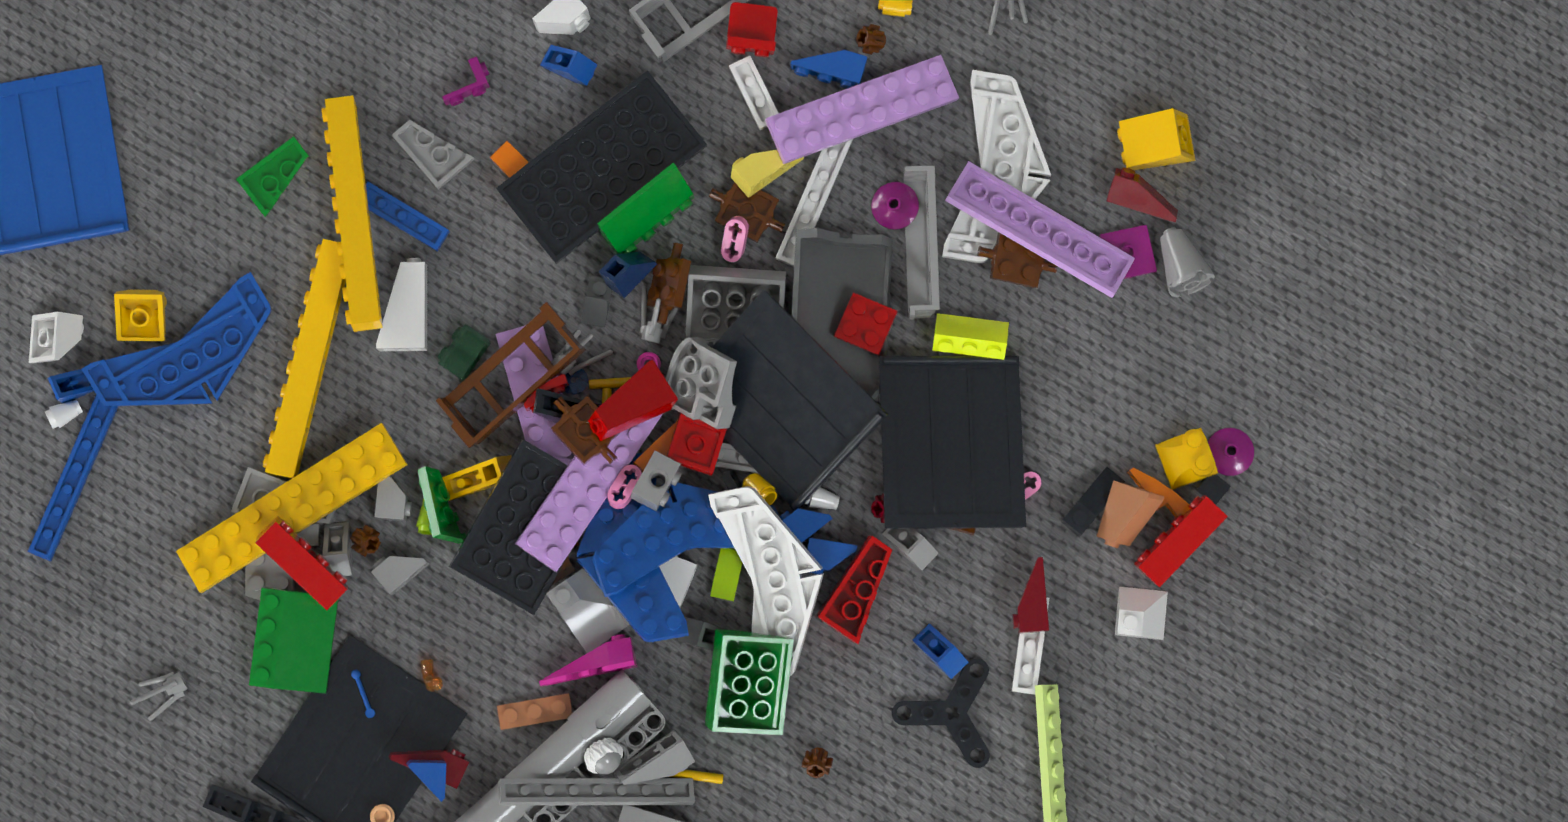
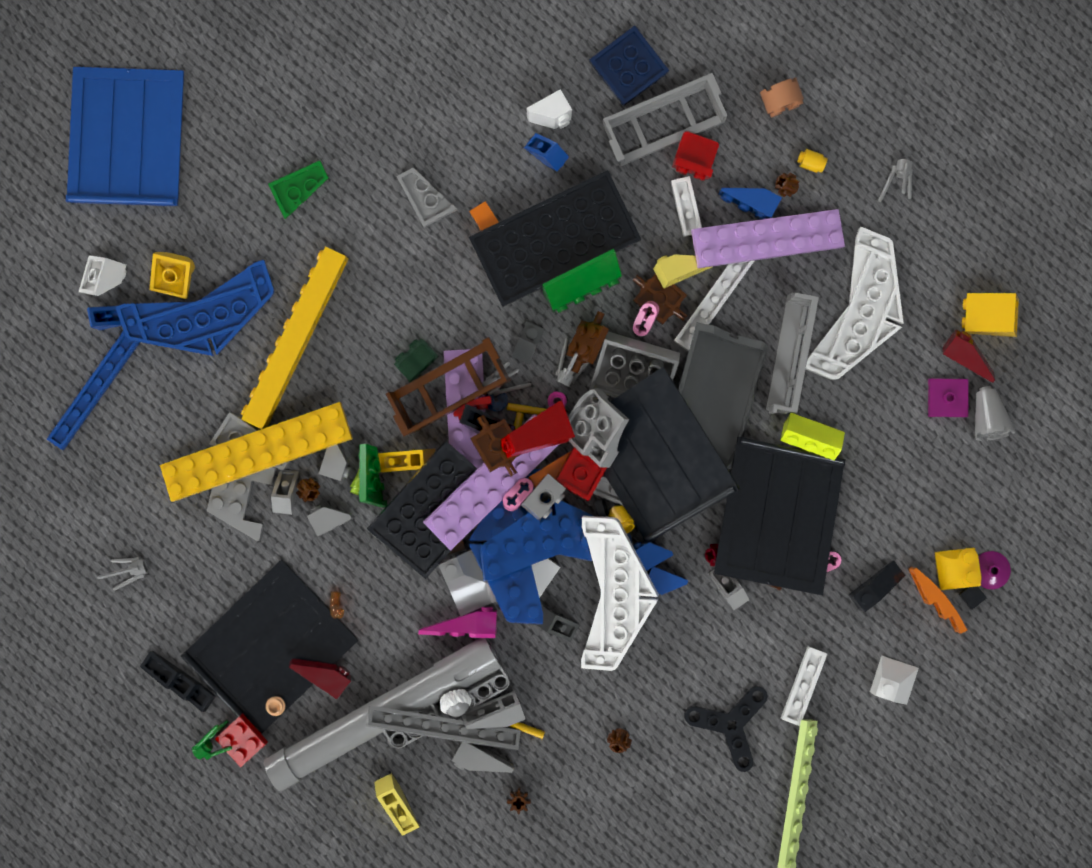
camera: 10 degrees right, 5 degrees up
(63, 413) = (94, 338): white cone -> none
(292, 642) = (235, 555): green slope -> none
(302, 563) = (252, 499): red wedge -> none
(353, 214) = (352, 232): yellow brick -> none
(370, 713) = (283, 623): blue hinge -> none
(405, 217) = (391, 242): blue plate -> none
(407, 310) = (378, 318): white slope -> none
(432, 774) = (318, 686): blue slope -> none
(475, 89) = (470, 155): magenta bracket -> none
(534, 711) = (410, 650): nougat plate -> none
(626, 271) = (556, 325): dark blue slope -> none
(726, 574) = (581, 579): lime slope -> none
(748, 682) = (580, 668): green slope -> none
(823, 499) = (670, 538): white cone -> none
(856, 590) = (679, 614): red wedge -> none
(865, 324) = (733, 408): red plate -> none
(896, 217) = (773, 329): magenta dish -> none
(940, 651) = (733, 675): blue slope -> none
(1015, 263) = (862, 384): reddish brown plate -> none
(1032, 607) = (814, 658): dark red slope -> none
(1040, 229) = (887, 365): lavender plate -> none
(1126, 513) = (904, 603): nougat slope -> none
(1181, 540) = (941, 636): red wedge -> none

